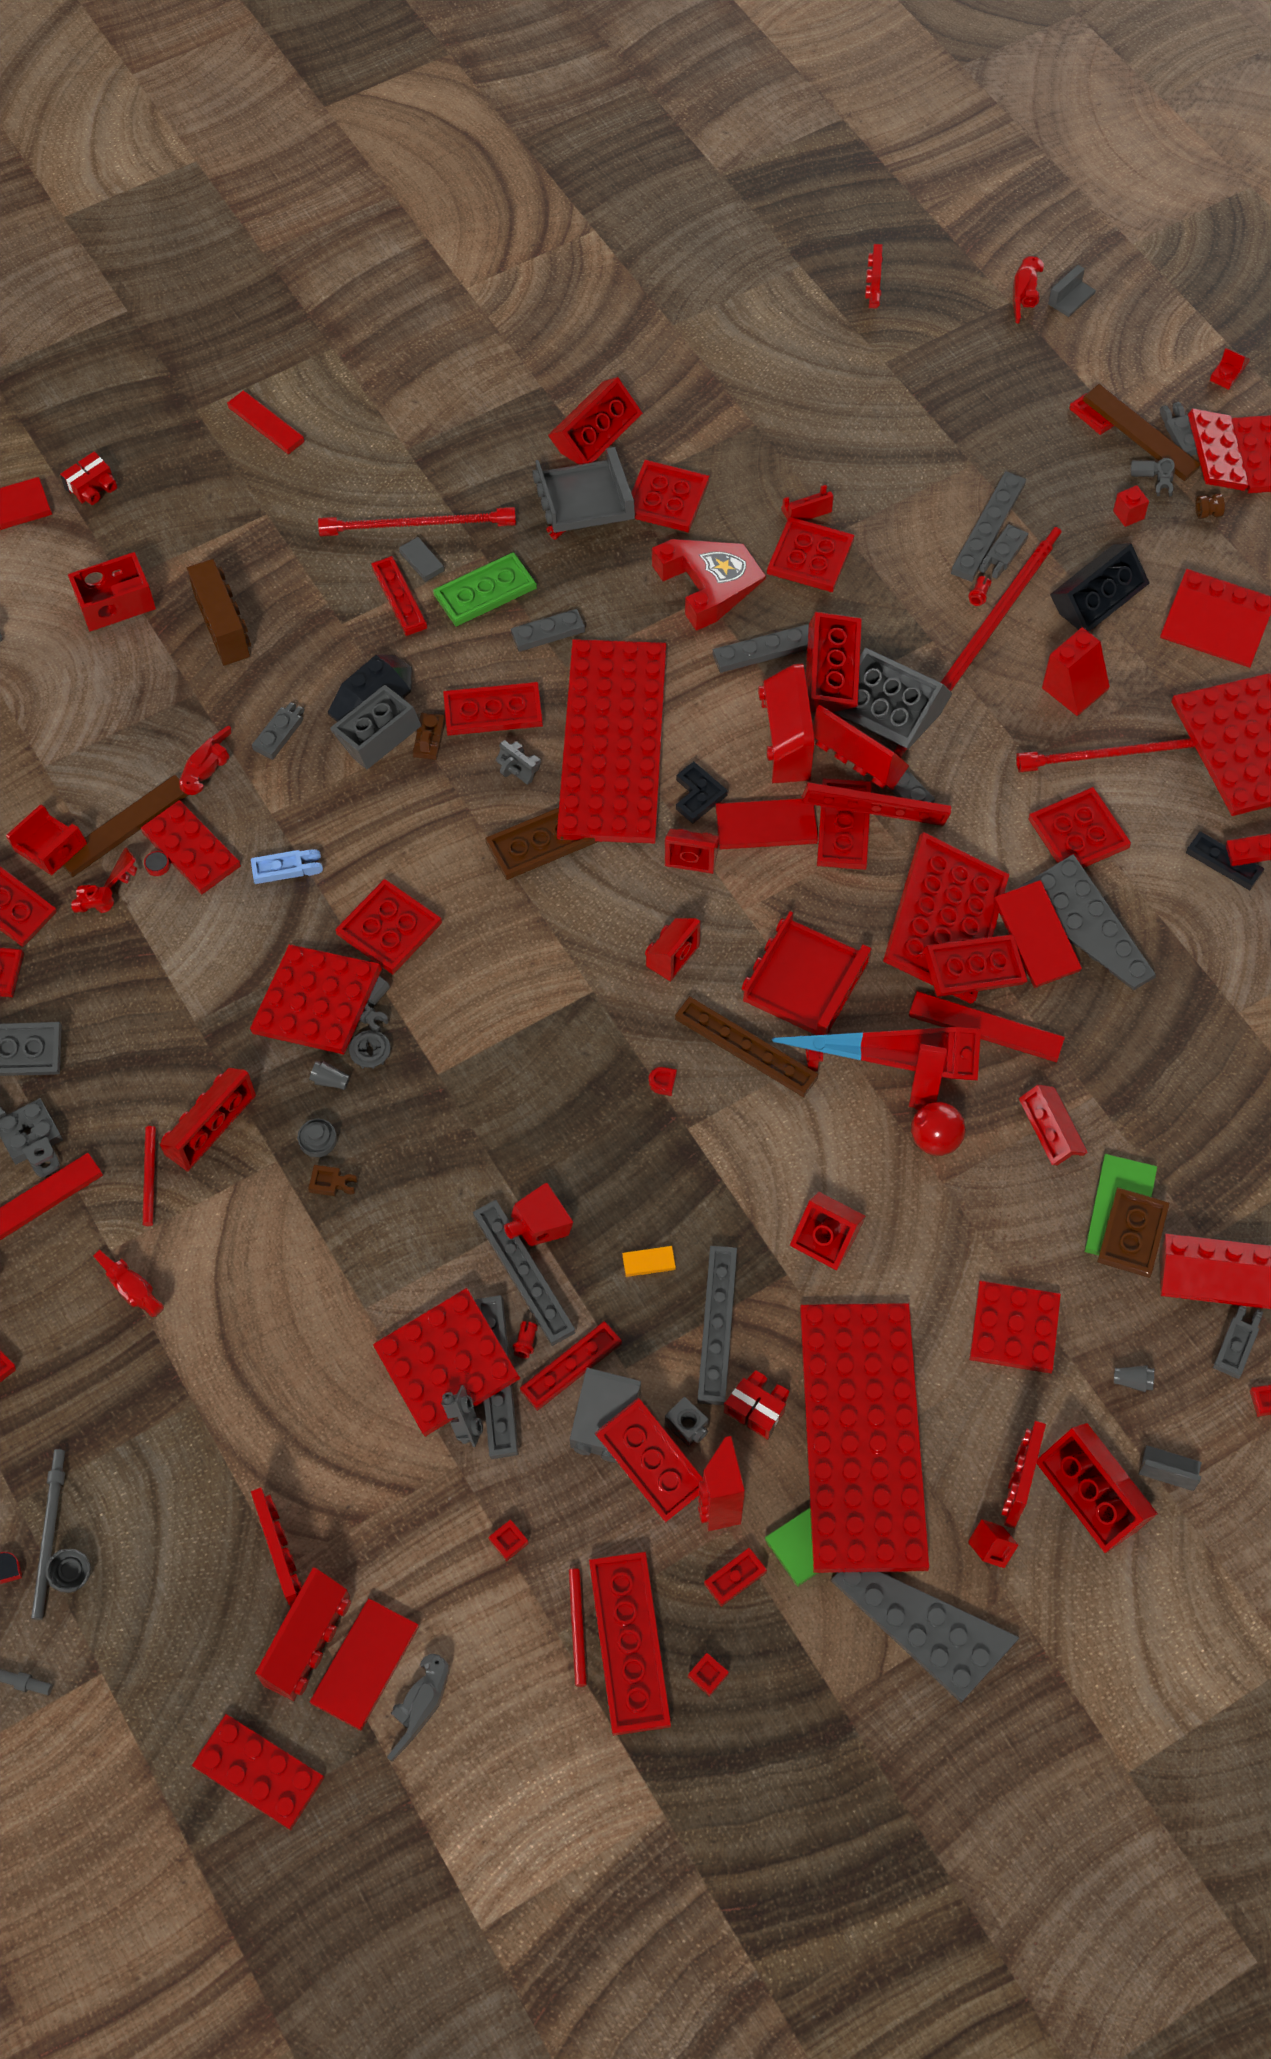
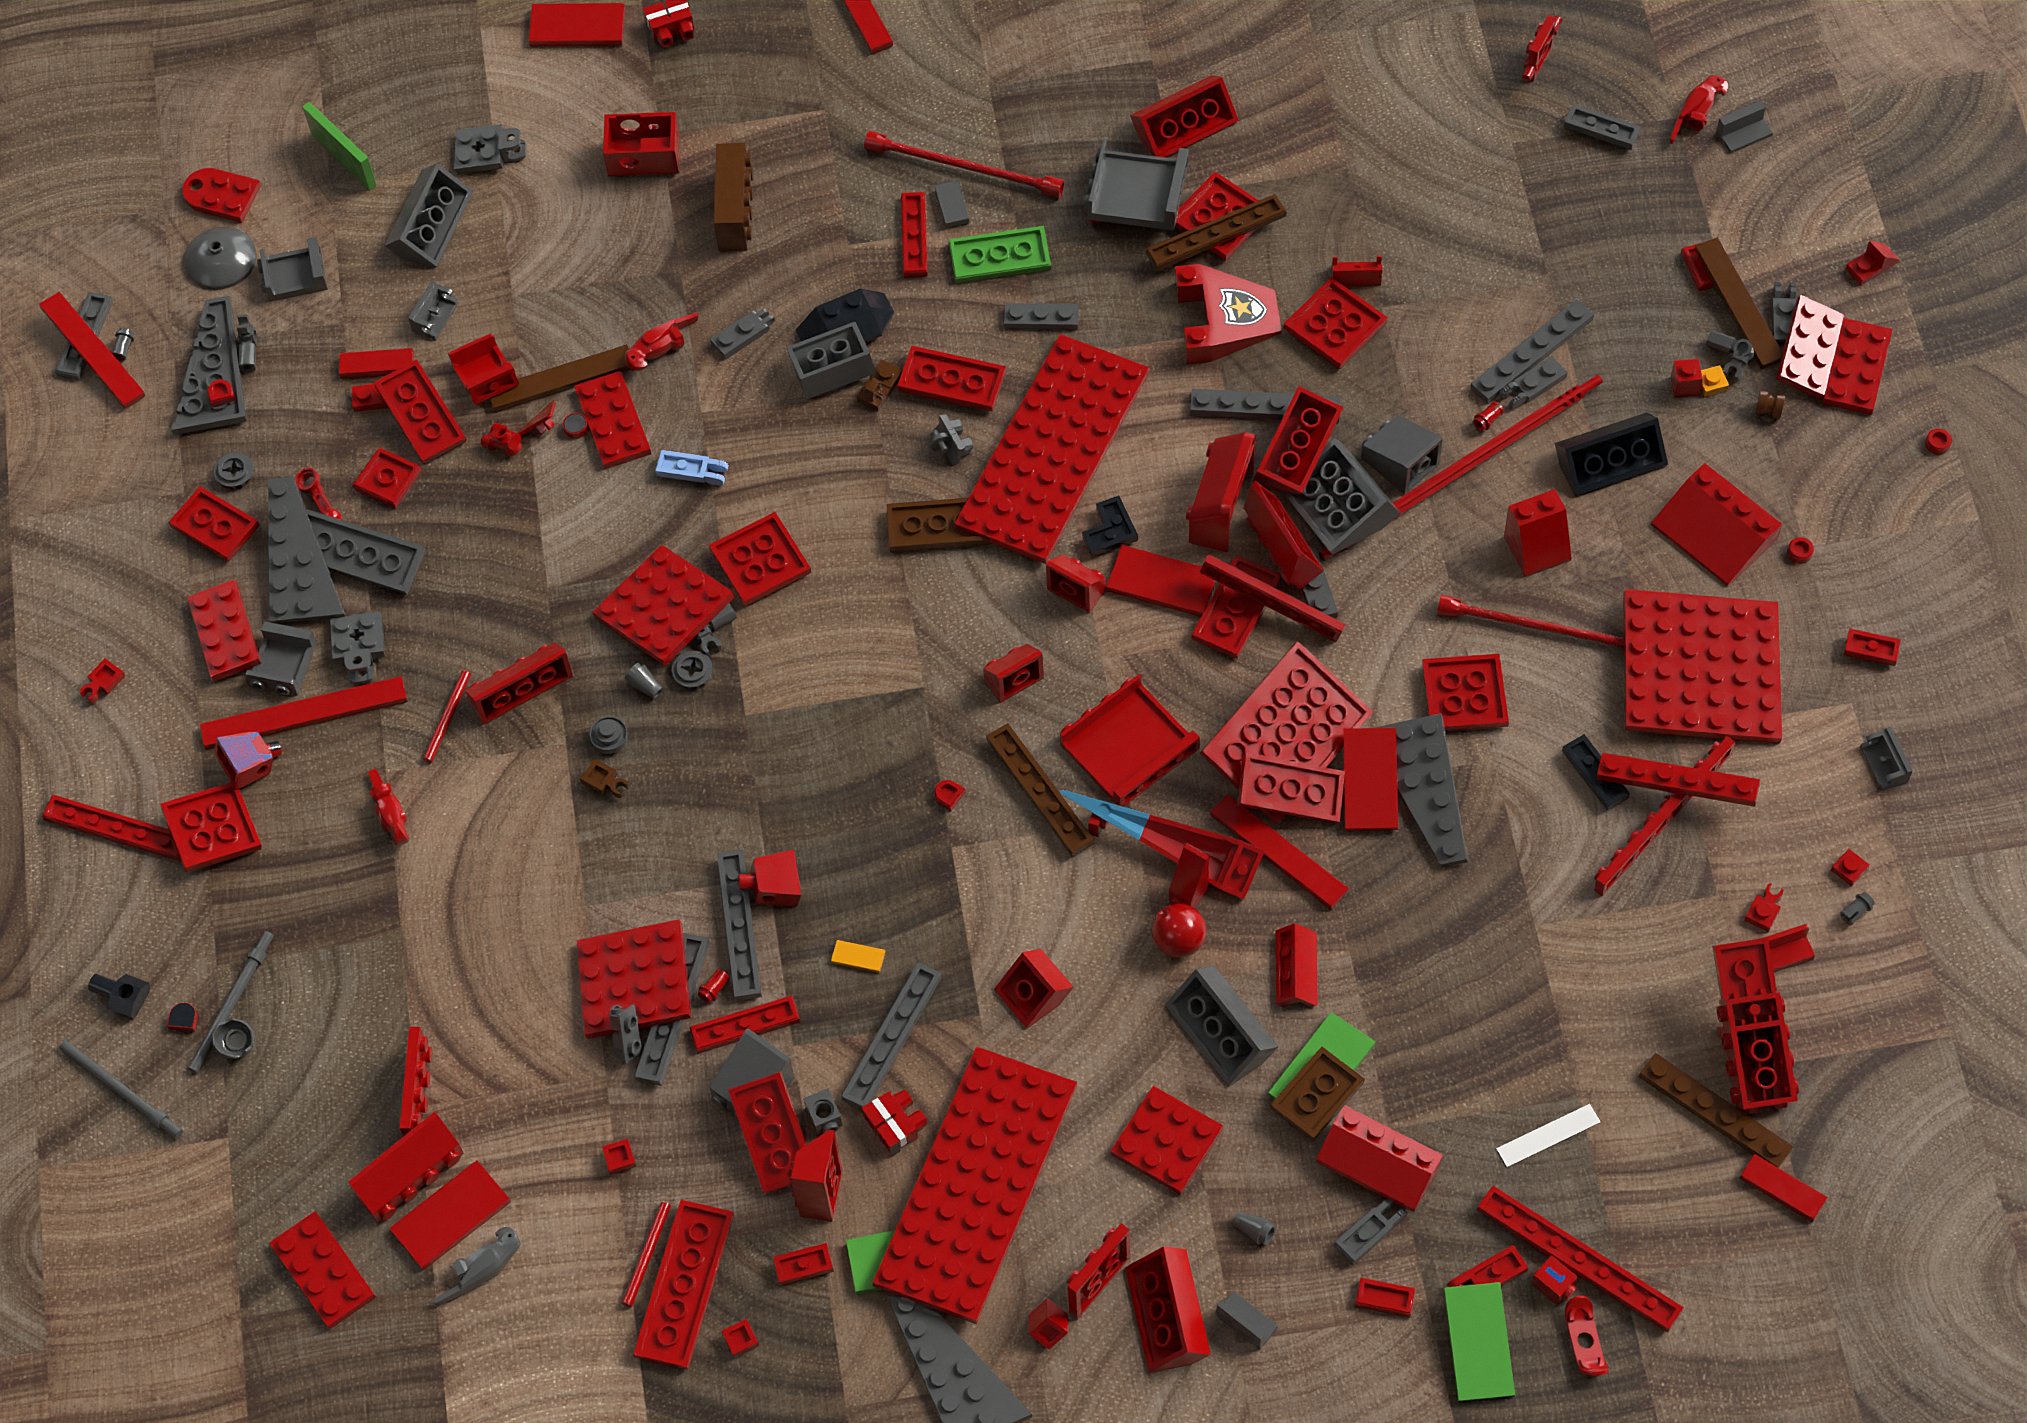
camera: 25 degrees right, 0 degrees up
(671, 510) = (1216, 232): none -> reddish brown tile
(925, 642) = (1402, 452): none -> dark grey slope
(955, 326) = (1602, 126): none -> dark grey plate
(1013, 1202) = (1221, 1024): none -> dark grey slope
(1156, 502) = (1713, 381): none -> light orange plate

